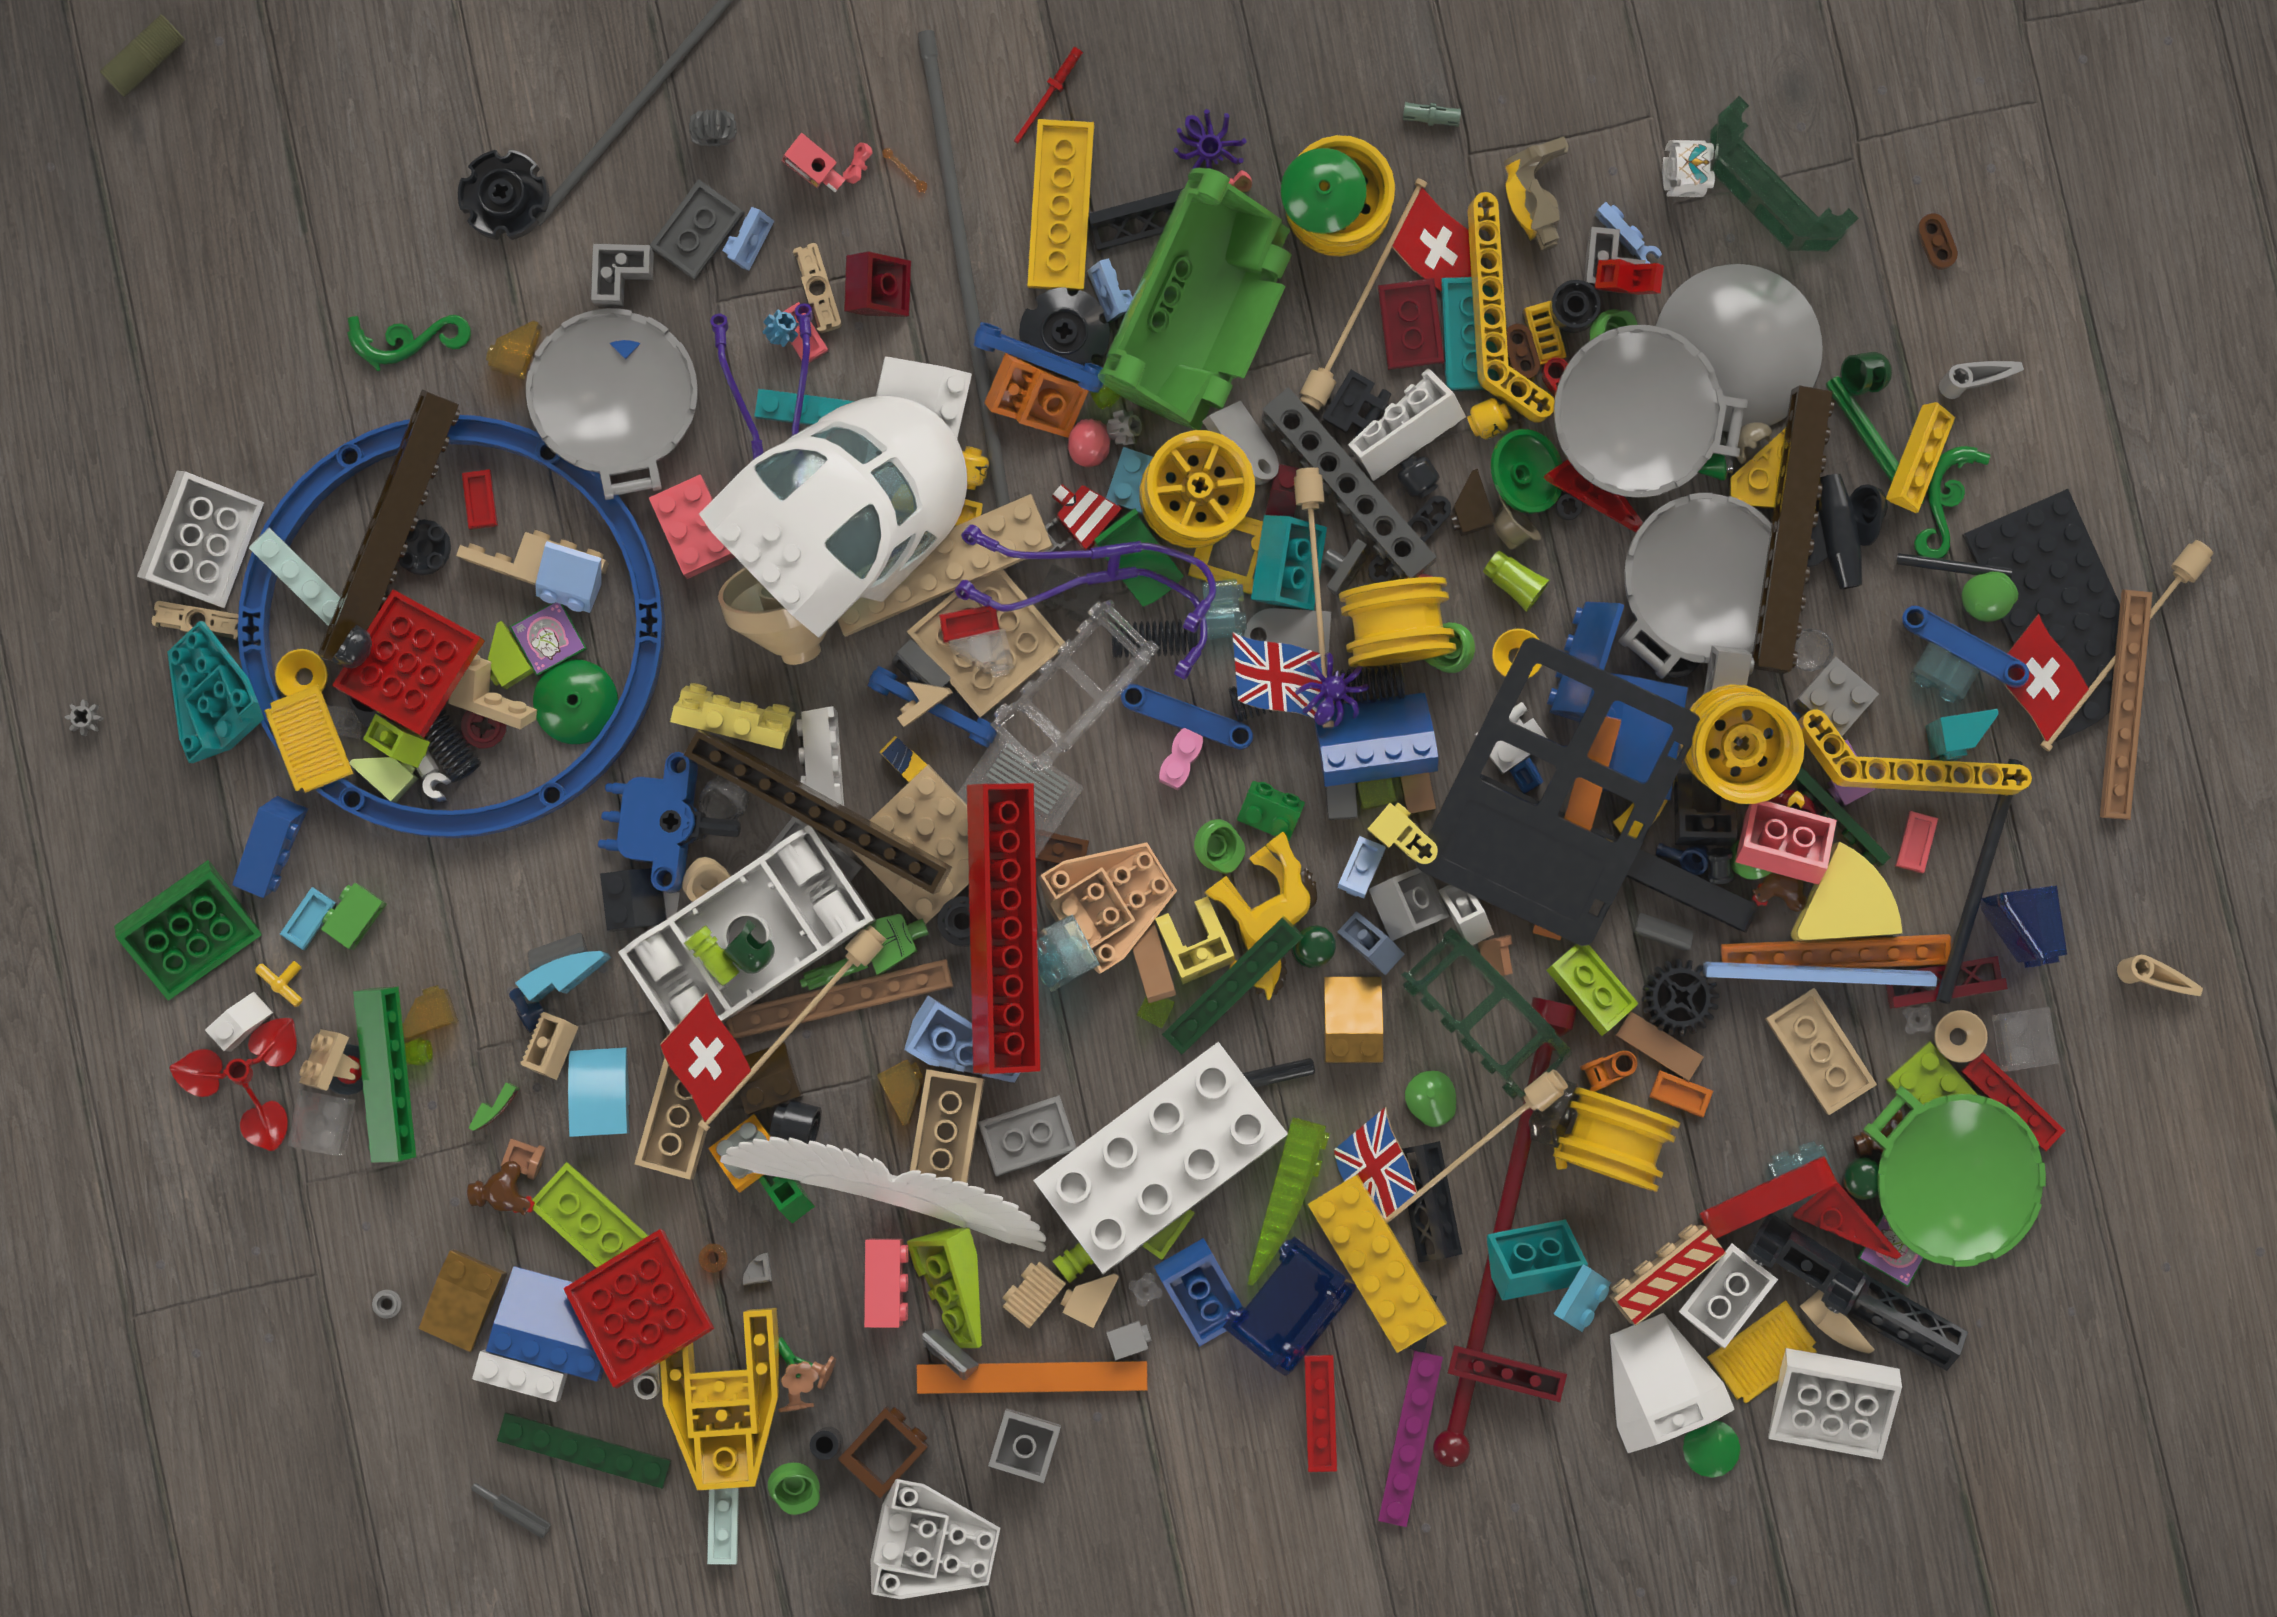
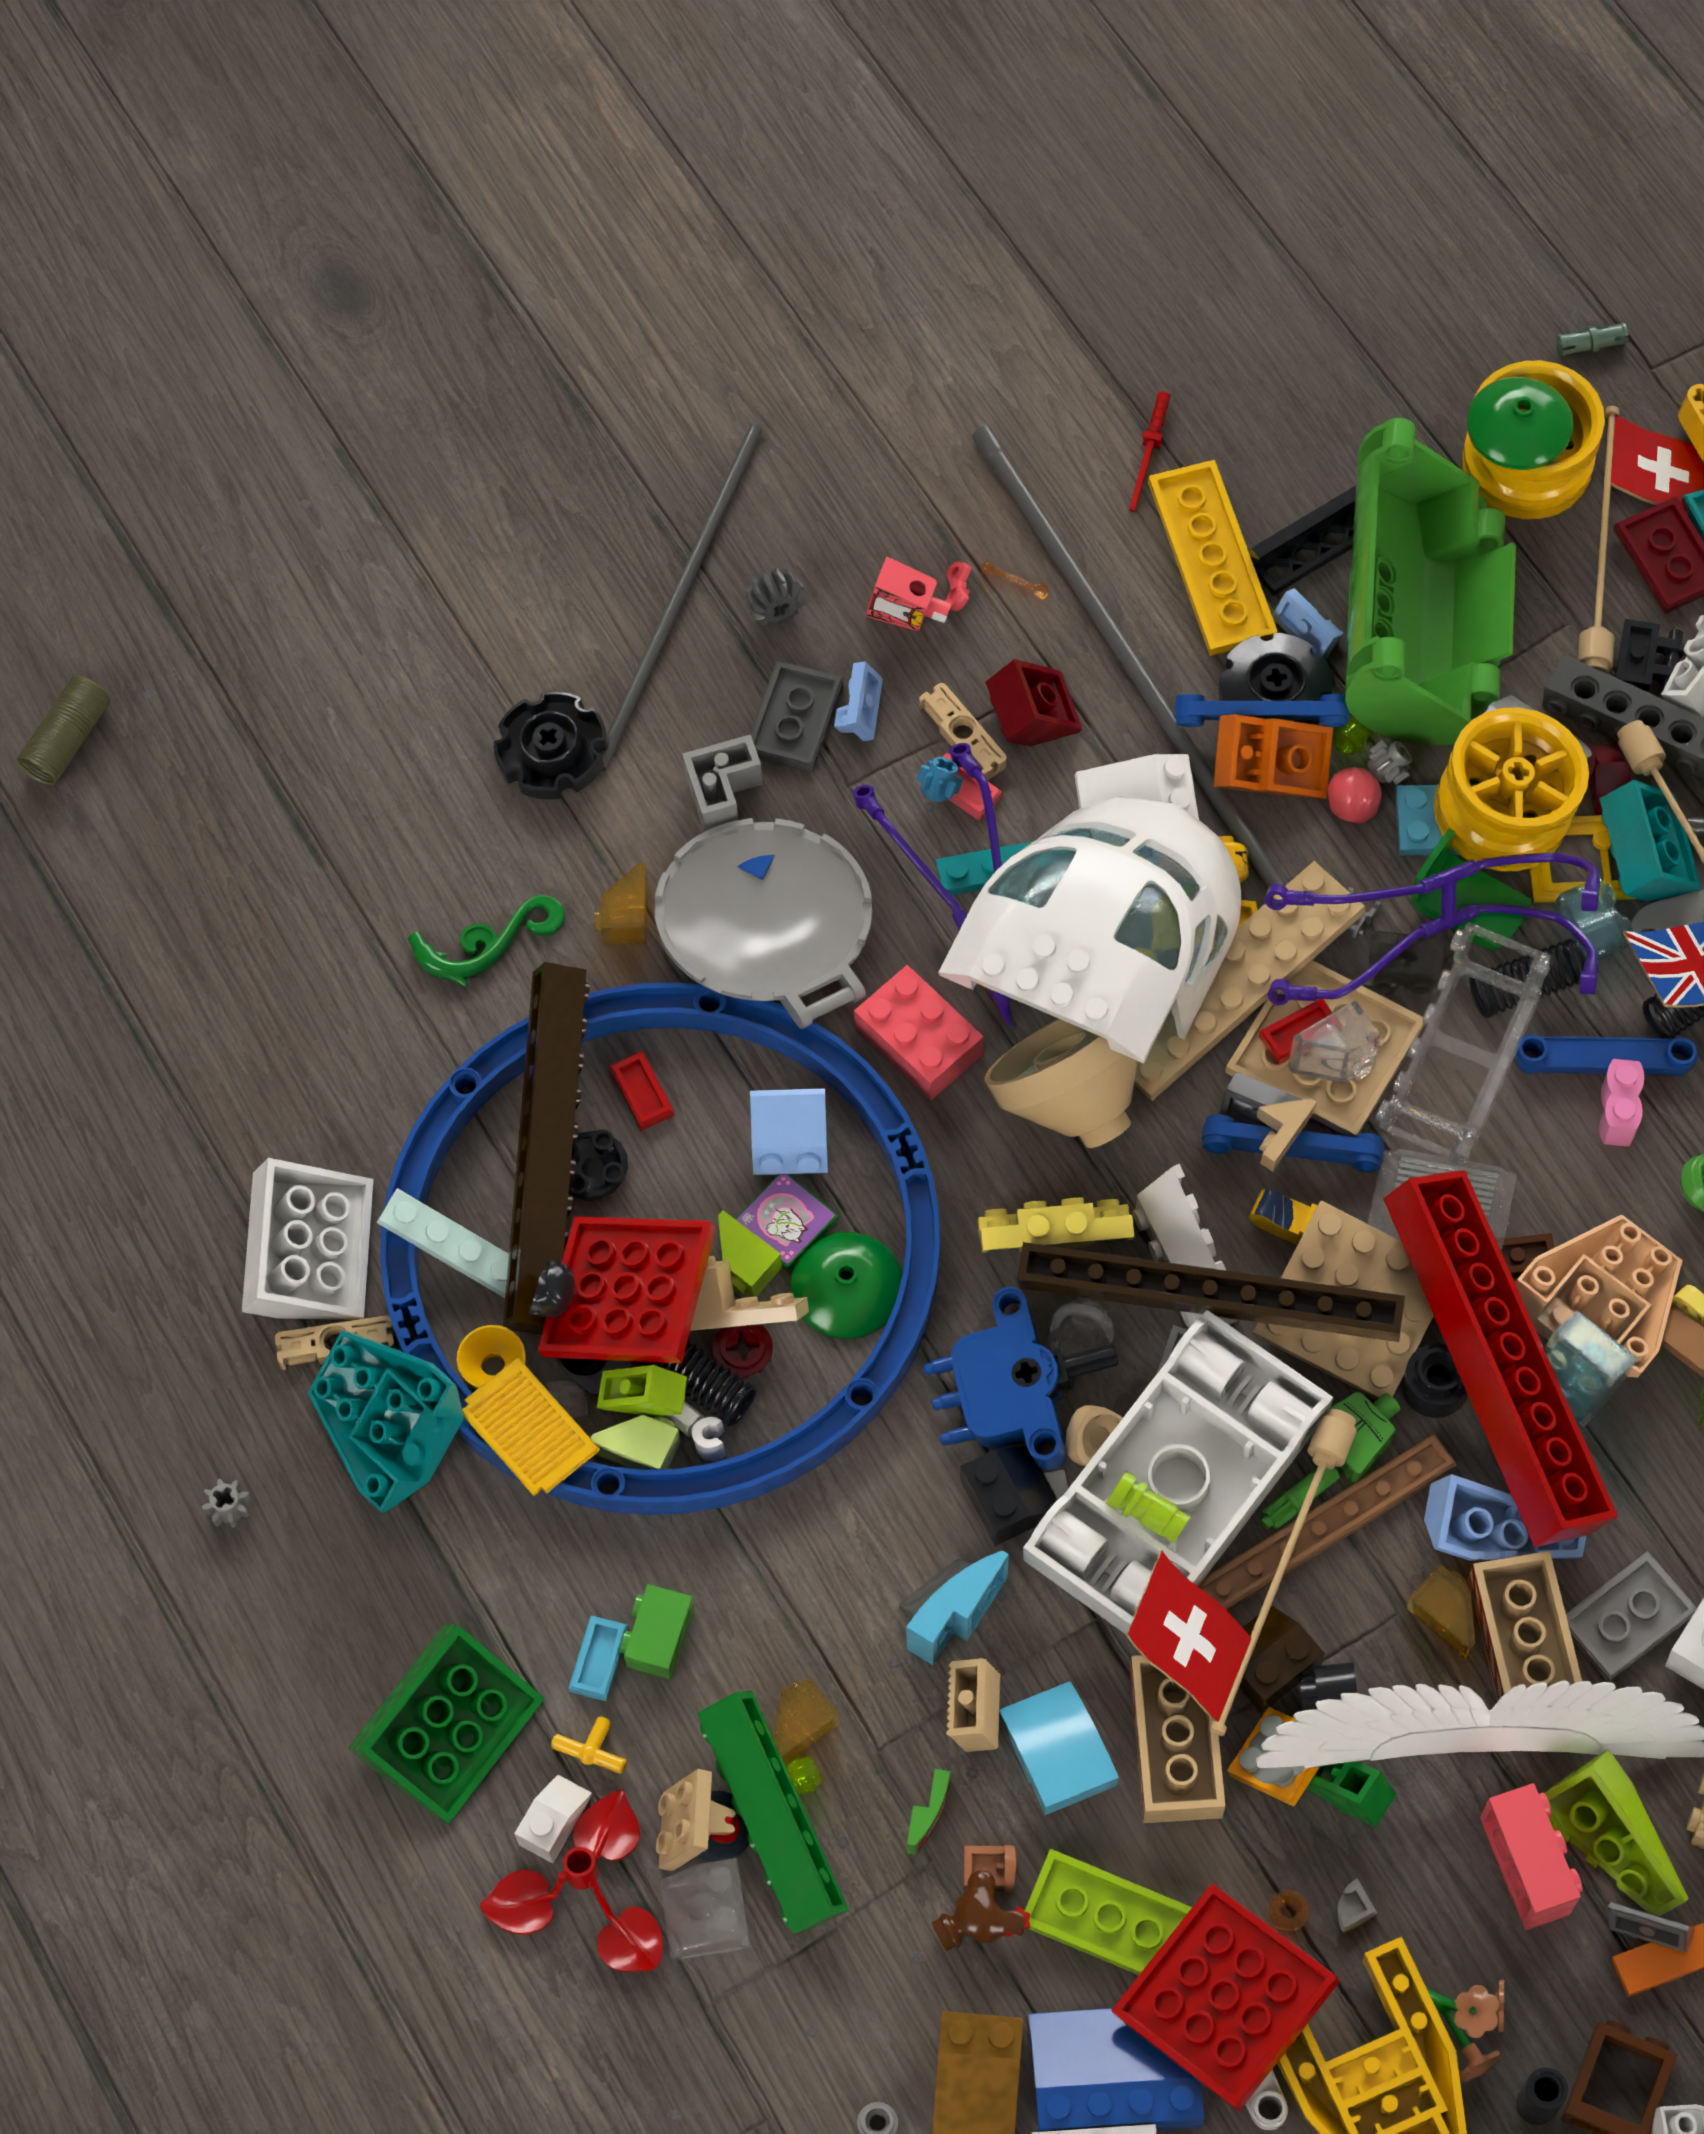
camera: 20 degrees left, 20 degrees down
(269, 846) = (520, 1582): blue wedge -> none
(527, 559) = (728, 1150): tan bracket -> none
(527, 1013) = (930, 1678): dark blue bar -> none
(748, 952) = (1193, 1486): dark green helmet -> none
(1085, 514) = (1384, 865): torso -> none
(1209, 145) = (1341, 439): dark purple animal -> none

